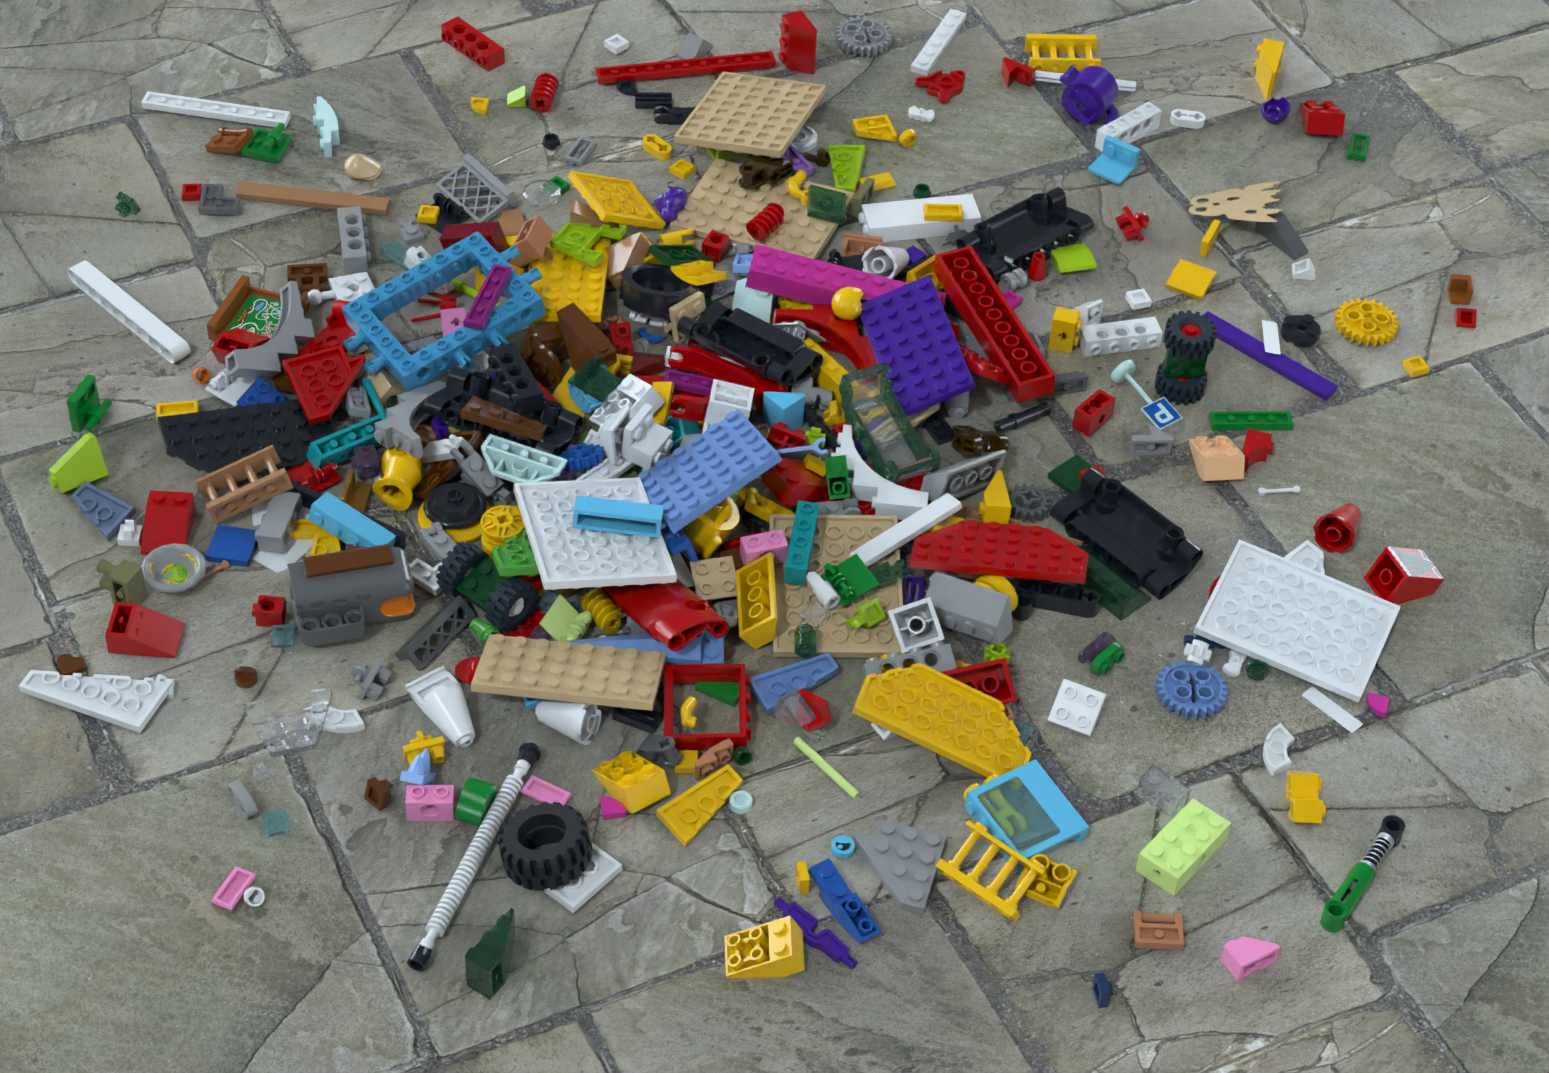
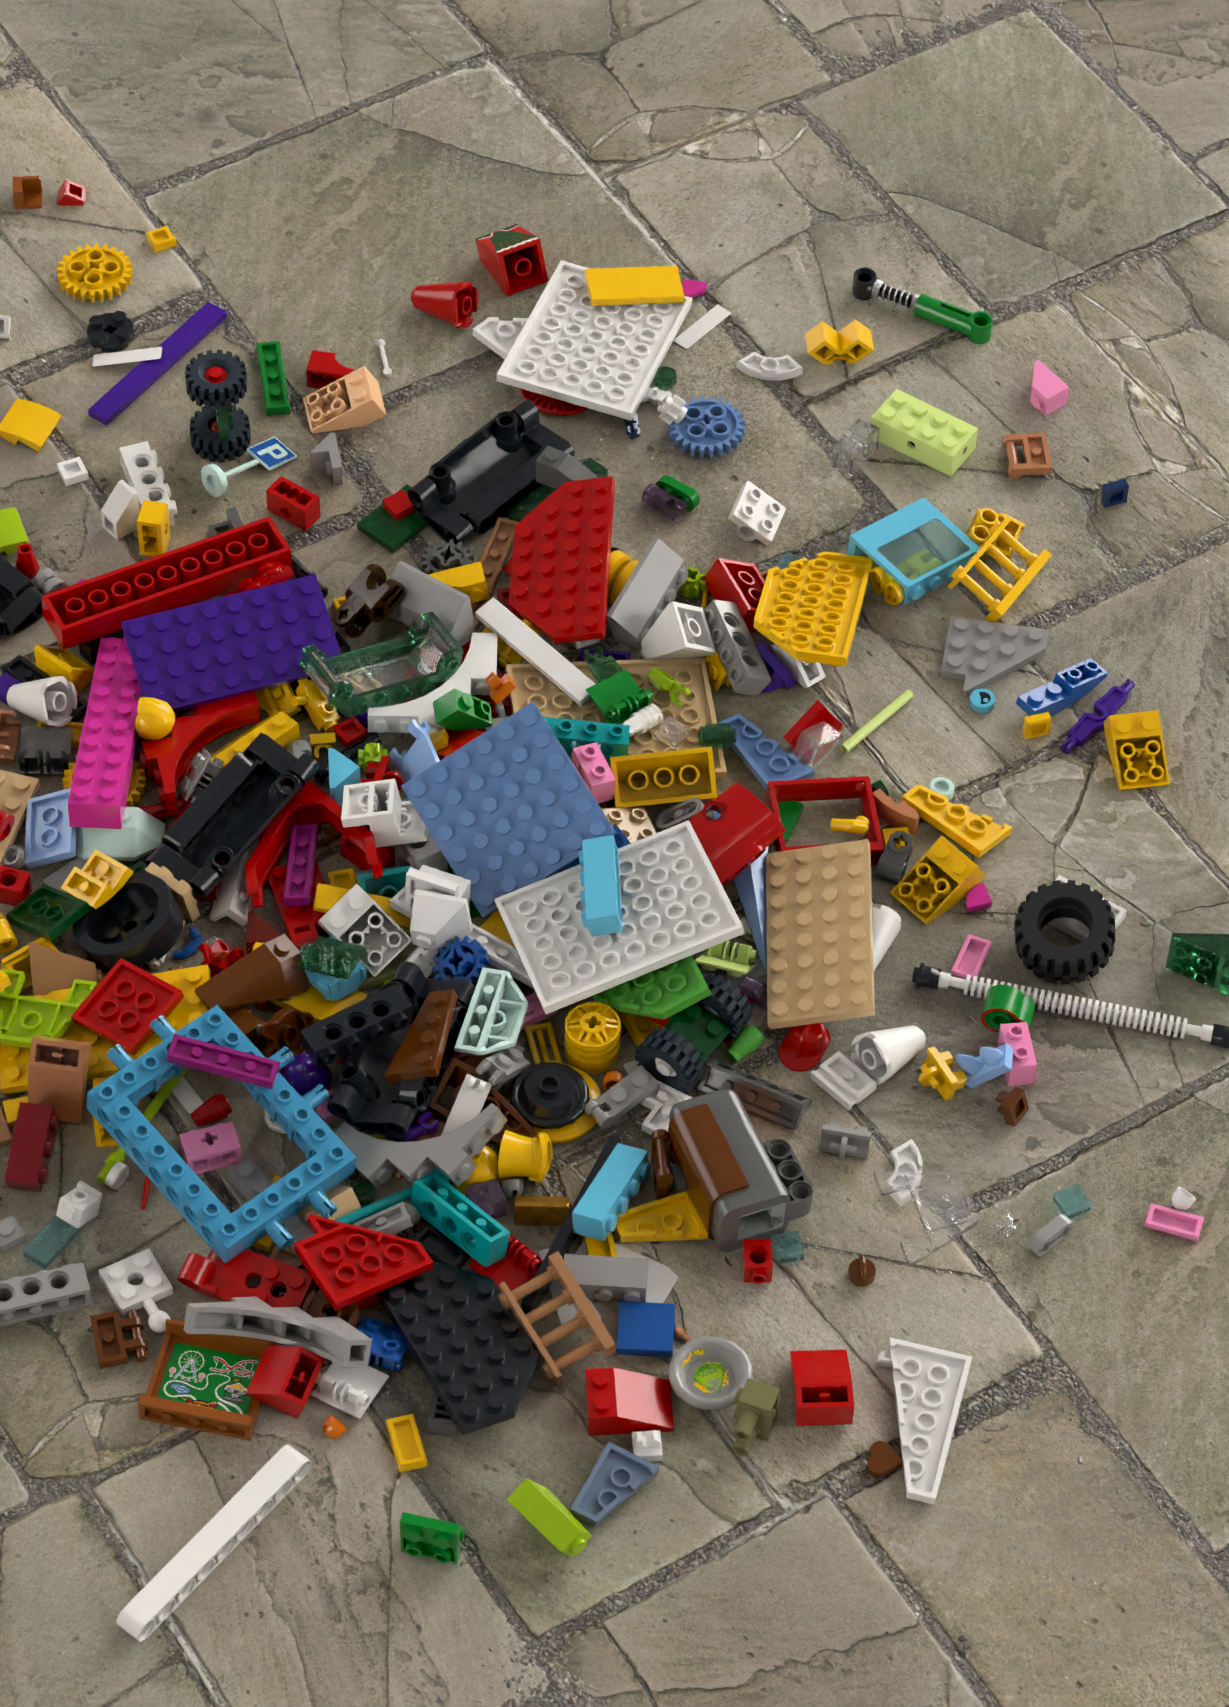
camera: 95 degrees left, 5 degrees up
(572, 274) = (126, 1005): none -> red plate
(866, 504) = (500, 687): none -> orange tile
(1103, 566) = (557, 467): none -> dark grey slope
(1368, 652) = (634, 285): none -> yellow tile

